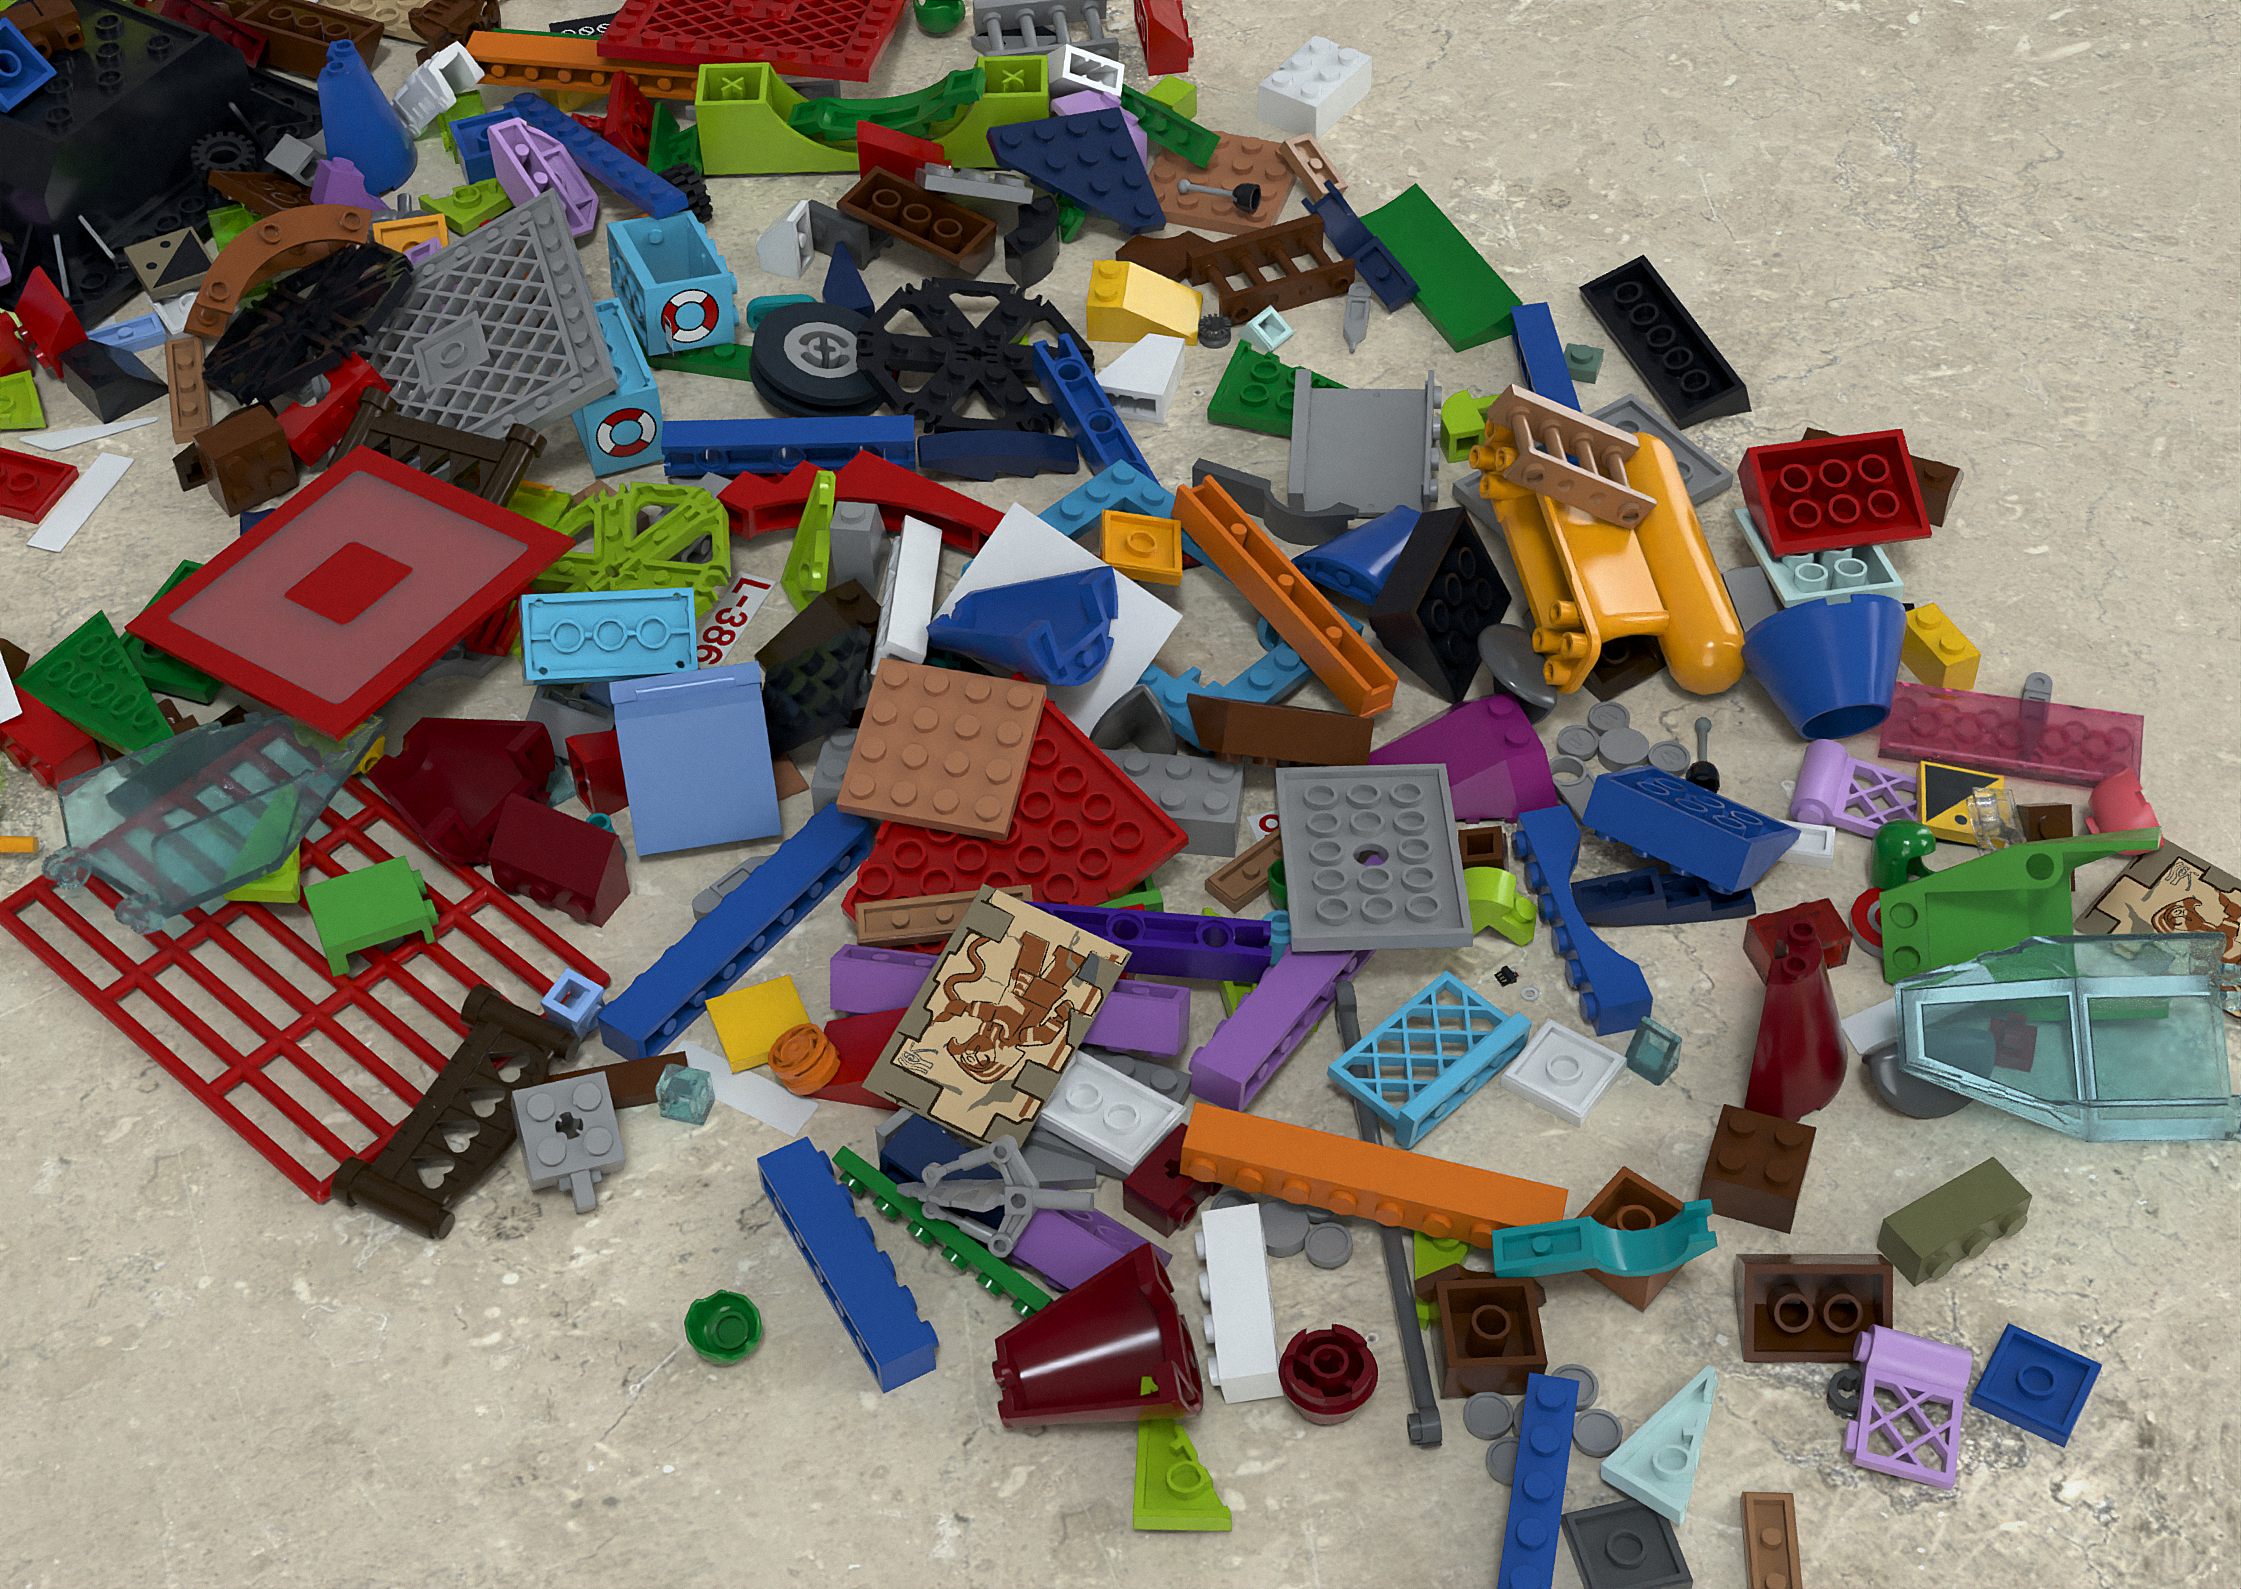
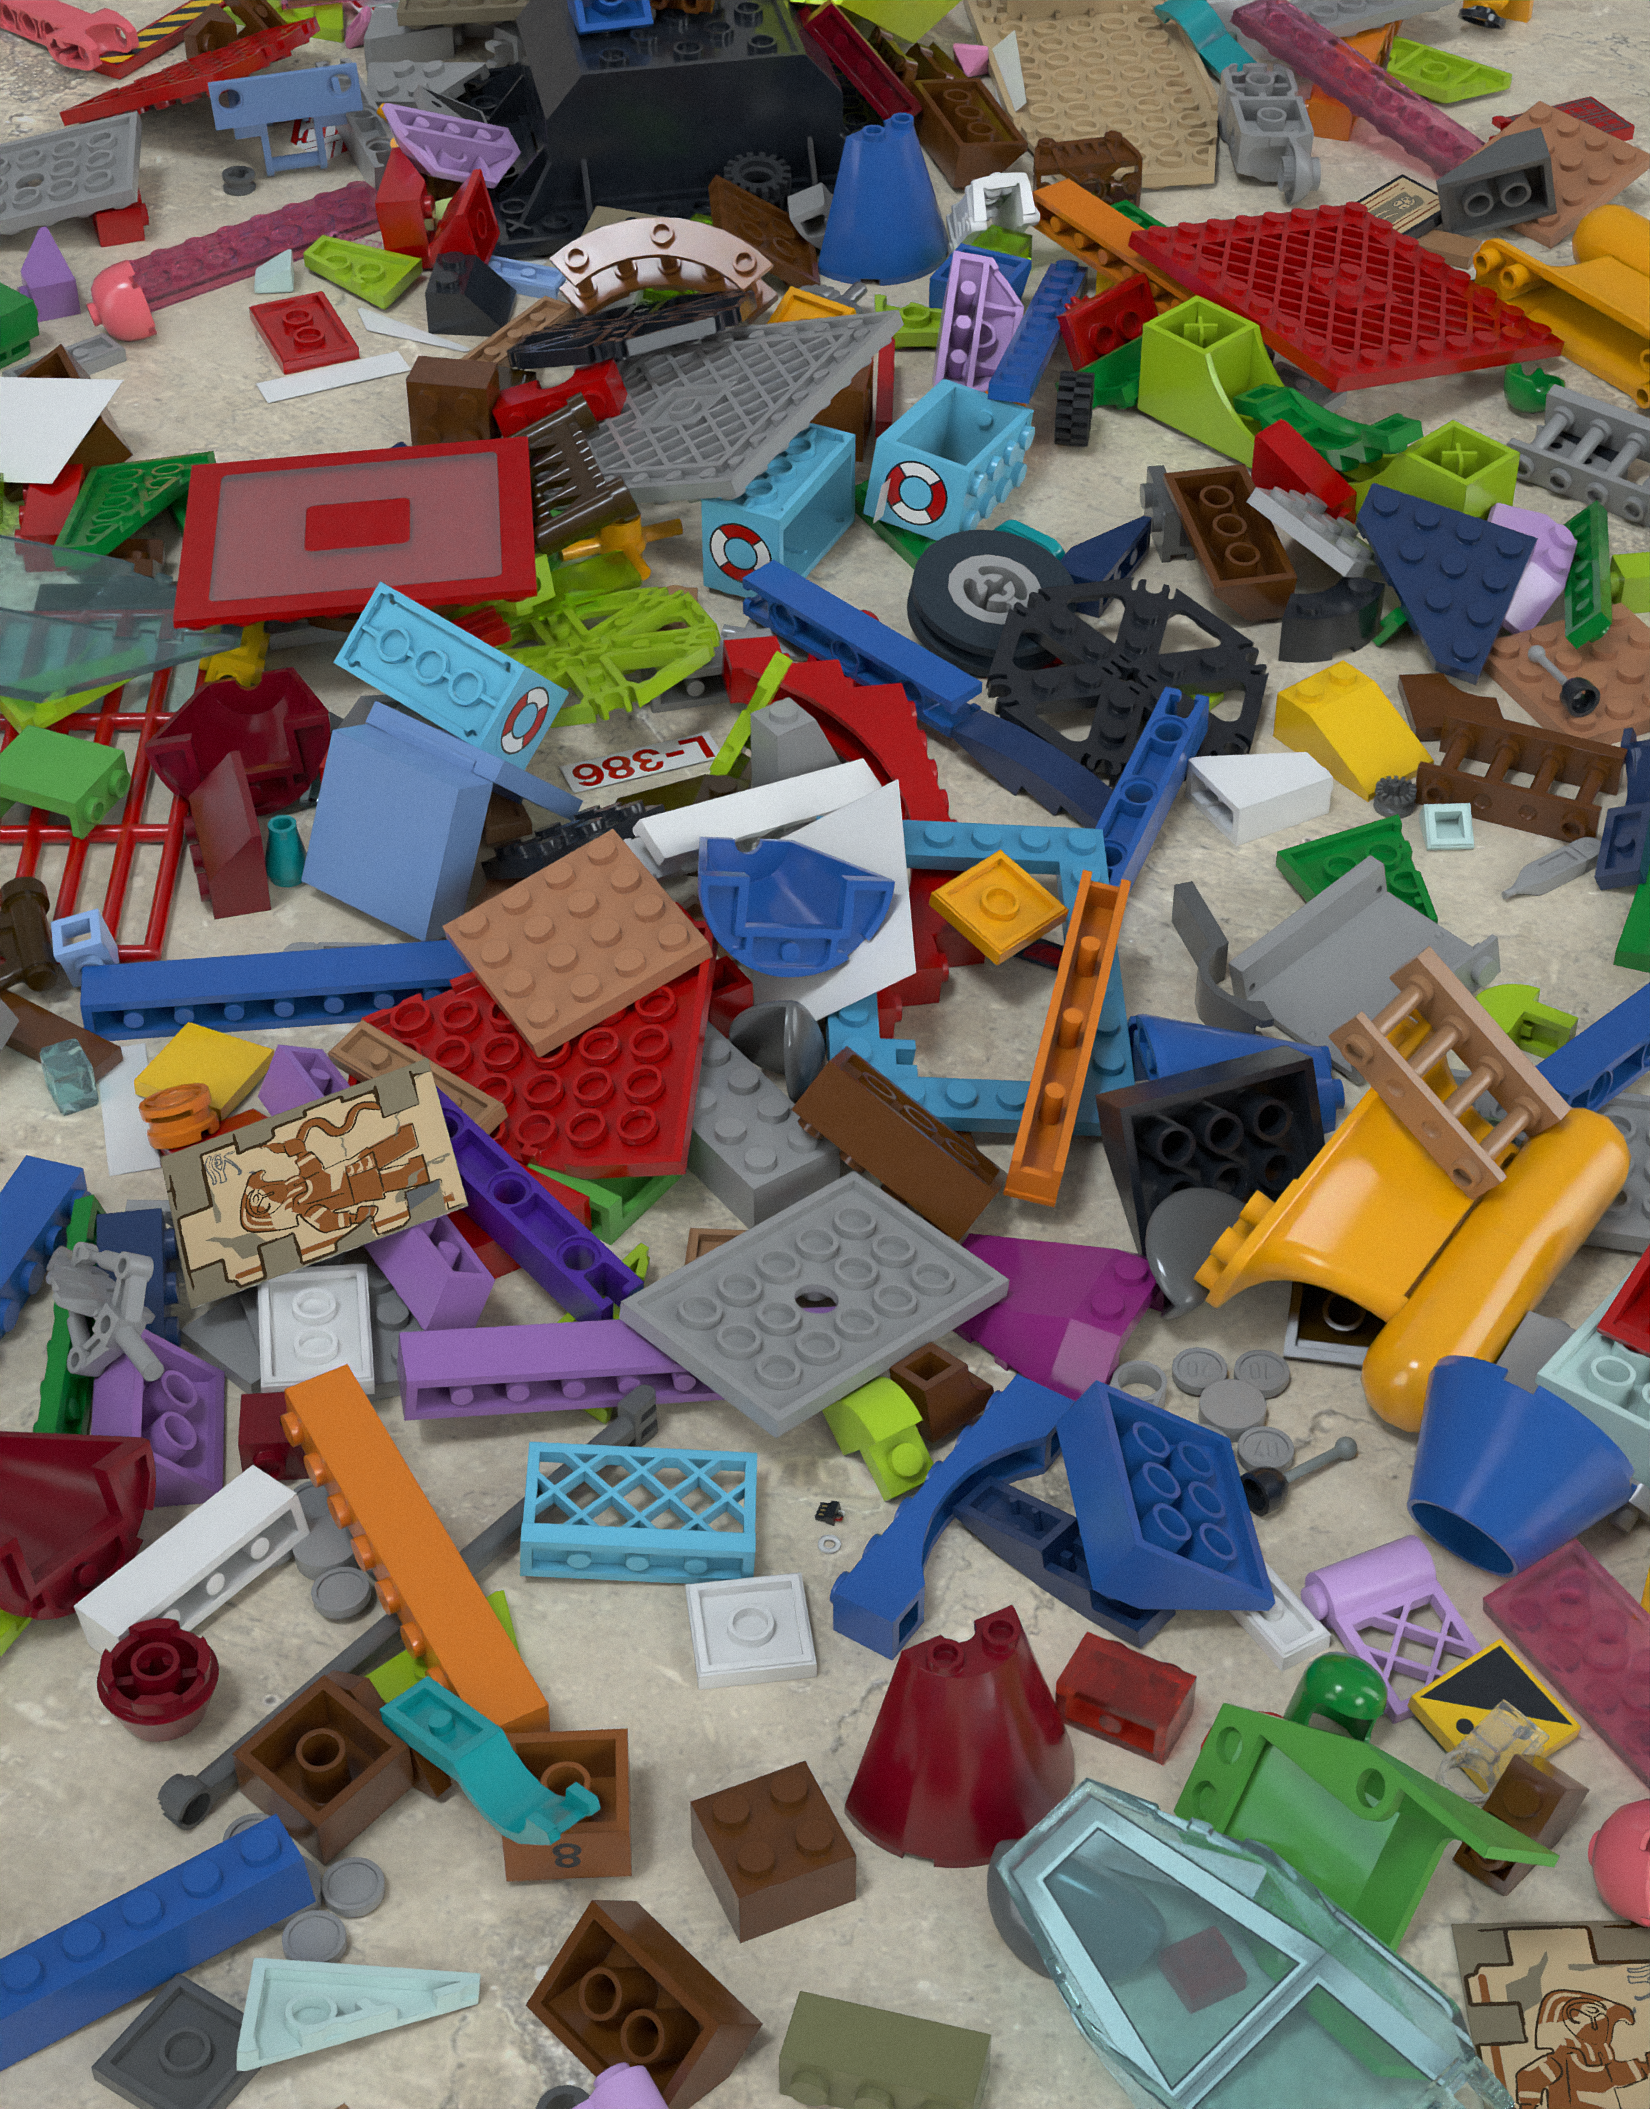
camera: 45 degrees right, 5 degrees down
(342, 184) = (810, 253): medium lavender arch -> none
(787, 243) = (1109, 493): white slope -> none
(1078, 70) = (1559, 494): white slope -> none
(1653, 1051) = (844, 1679): clear light blue slope -> none

